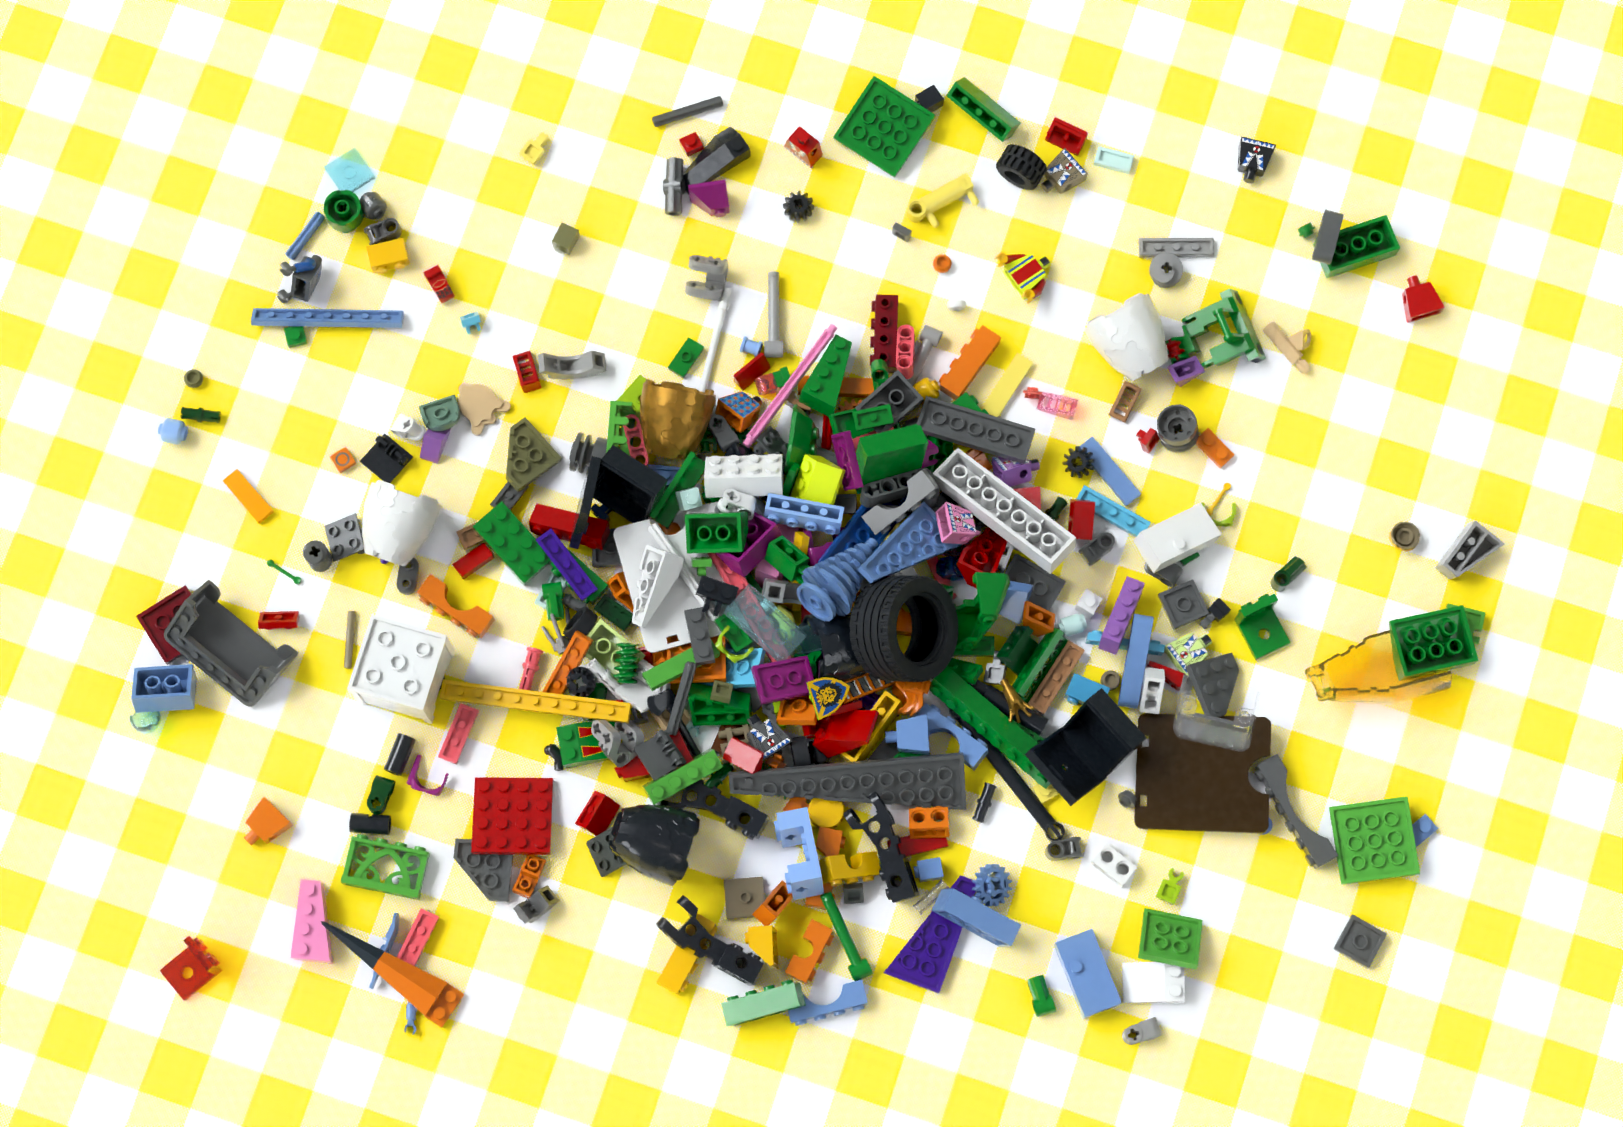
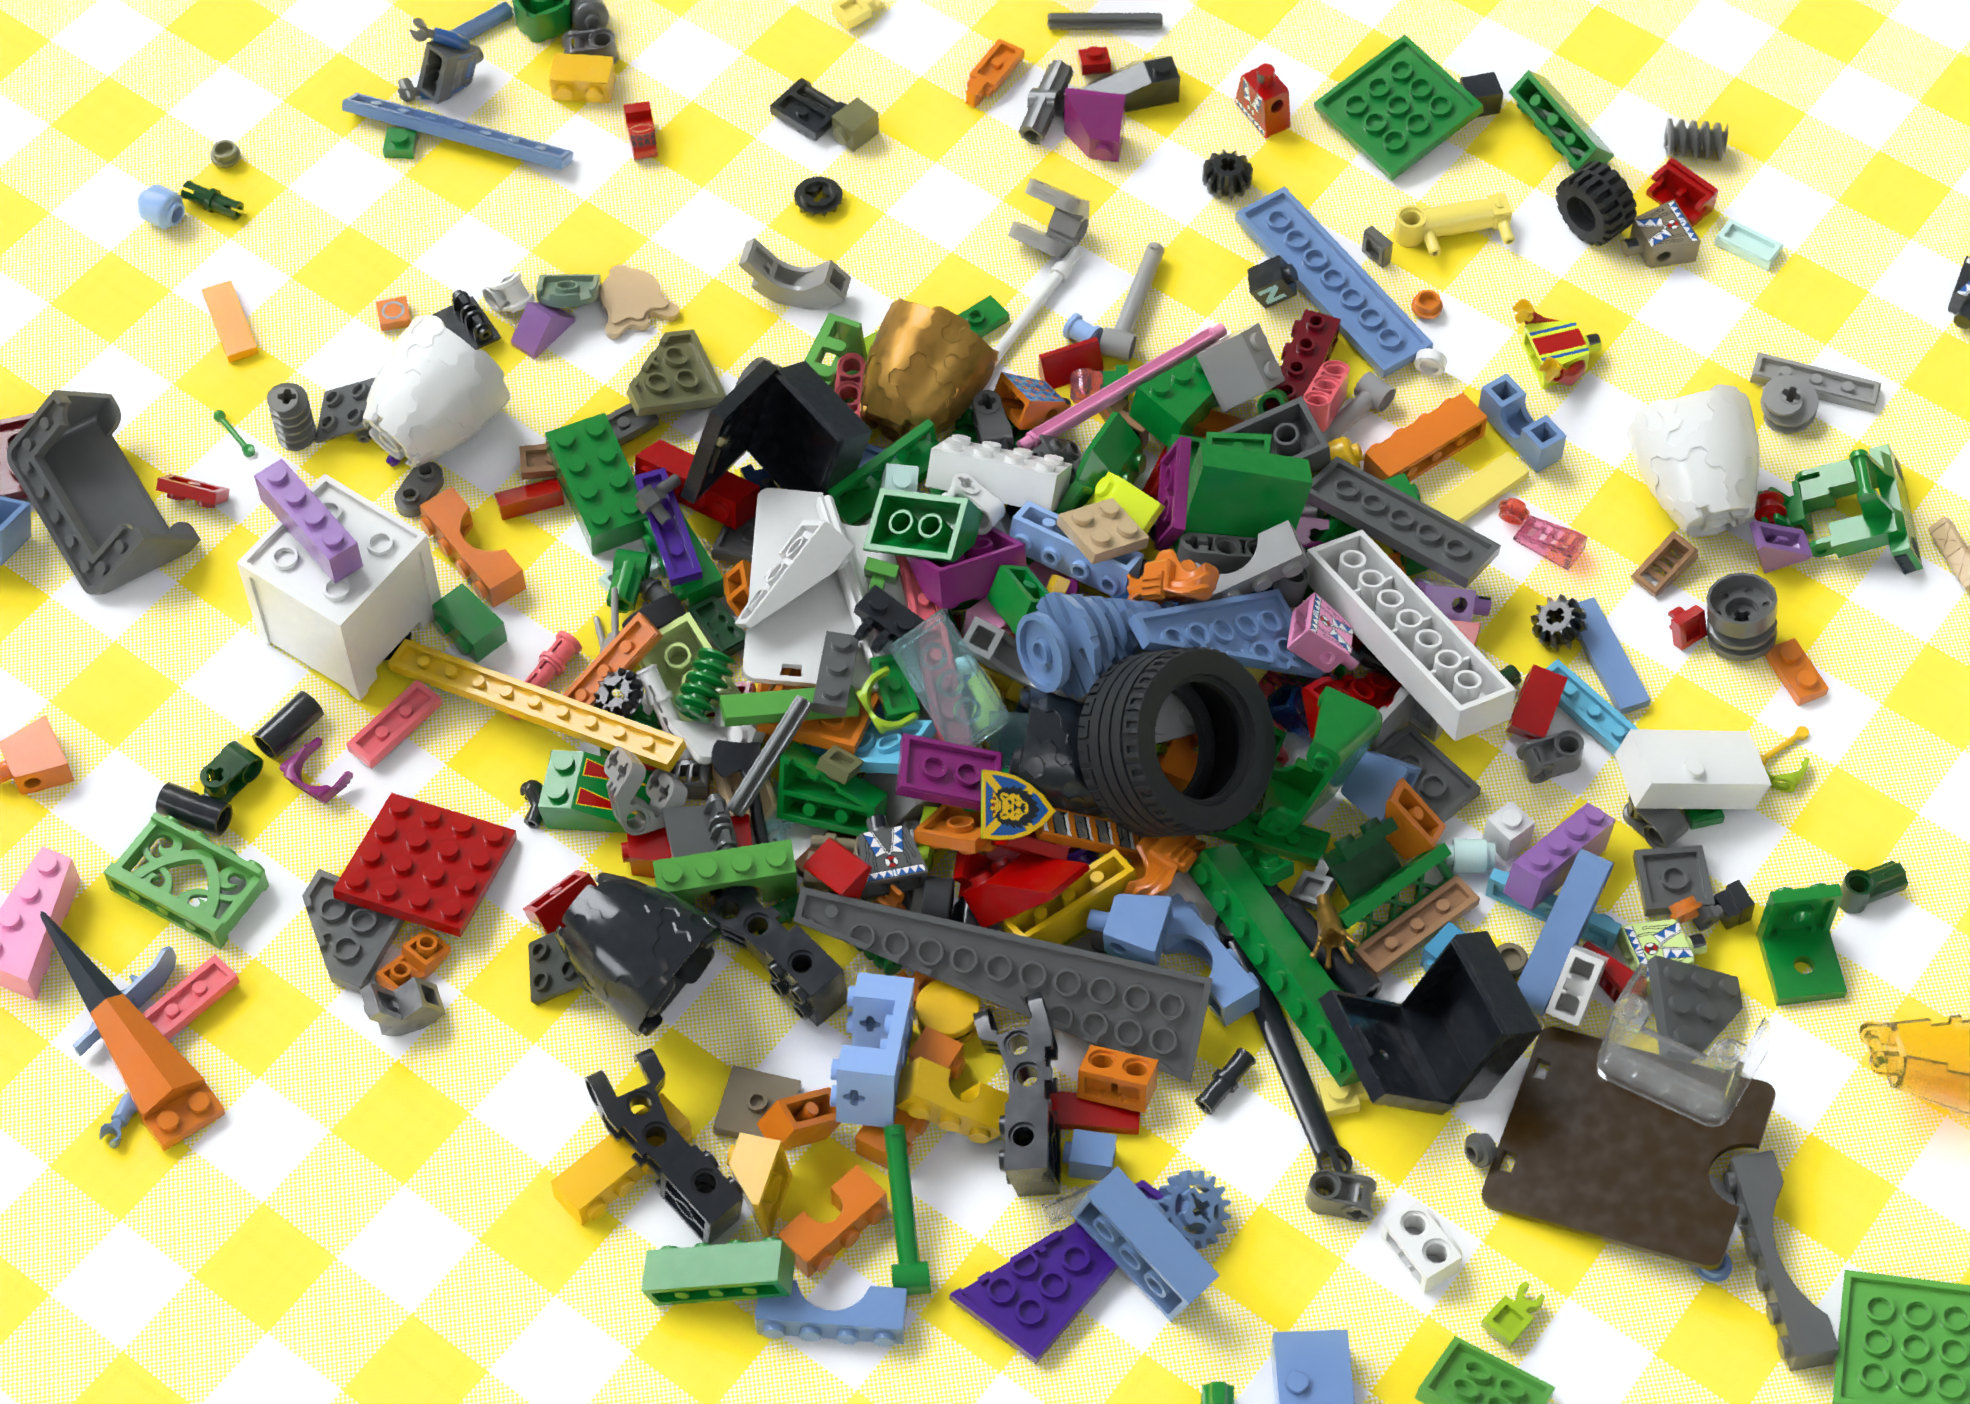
camera: 20 degrees right, 20 degrees down
(379, 652) = (308, 520): none -> brick
(469, 320) = (666, 187): medium azure tile -> none
(473, 656) = (468, 623): none -> green brick
(531, 239) = (804, 114): none -> black plate
(531, 382) = (722, 278): red slope -> none
(553, 555) = (651, 498): none -> dark grey piece
(555, 291) = (811, 188): none -> black gear
(633, 171) = (992, 71): none -> orange hinge
(817, 501) = (1102, 531): none -> tan plate
(850, 278) = (1272, 281): none -> black brick
(853, 893) = (945, 1152): dark grey plate -> none
(854, 354) = (1240, 367): none -> light grey slope
(867, 527) = (1173, 581): none -> orange piece
(883, 264) = (1334, 281): none -> medium blue plate
(1011, 328) = (1536, 441): none -> medium blue arch
(1064, 95) = (1695, 139): none -> dark grey piece
(1195, 624) = (1685, 909): none -> orange plate

